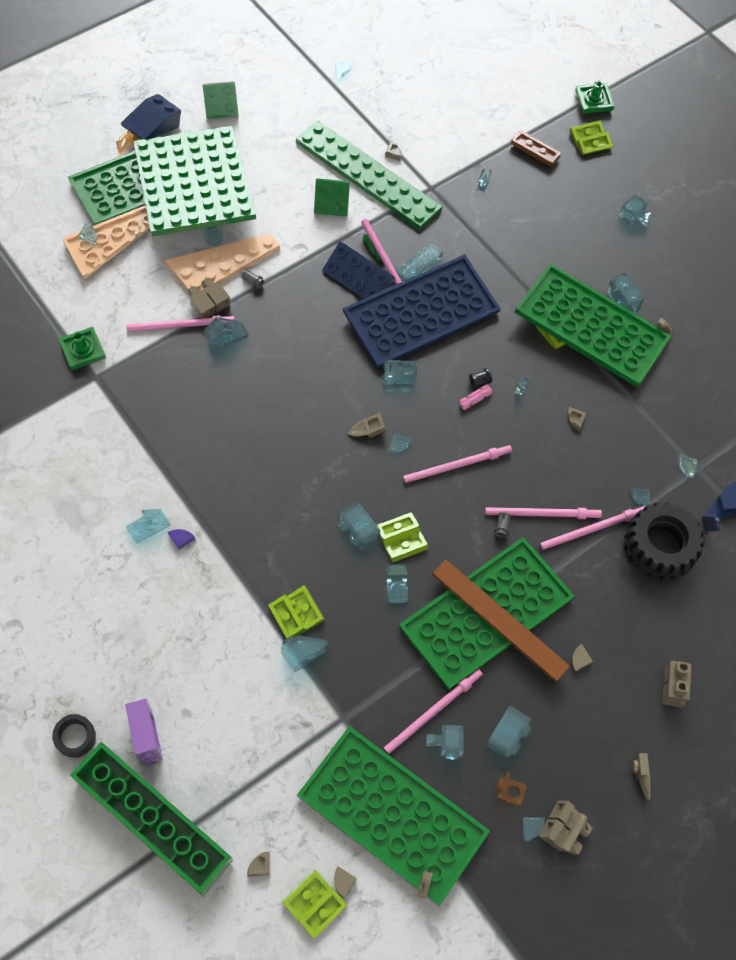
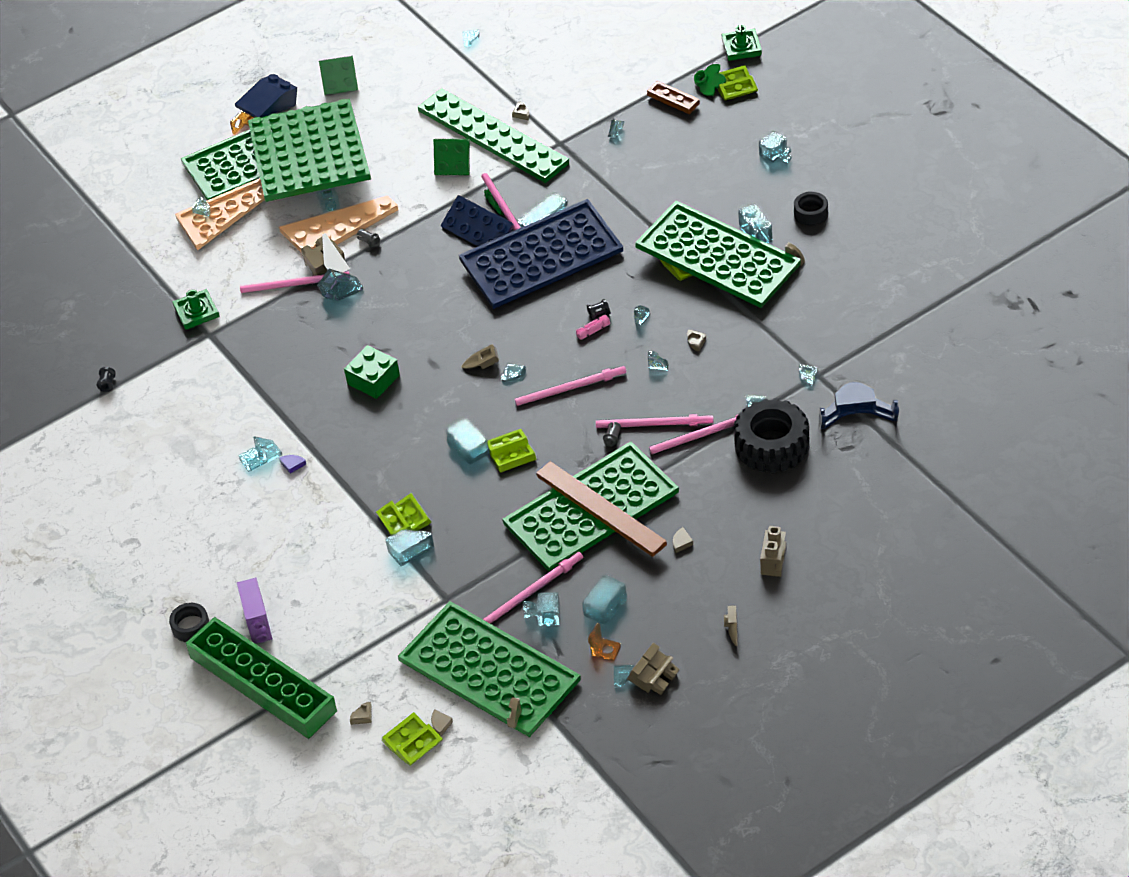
camera: 10 degrees right, 15 degrees down
(218, 303) = (332, 257): none -> white sticker
(260, 436) = (372, 371): none -> green brick
(396, 583) = (503, 489): clear light blue slope -> none
(398, 372) = (516, 308): clear light blue piece -> none
(540, 442) = (656, 361): none -> clear light blue tile
(571, 132) = (709, 79): none -> green plate
(678, 269) = (810, 198): none -> black tyre

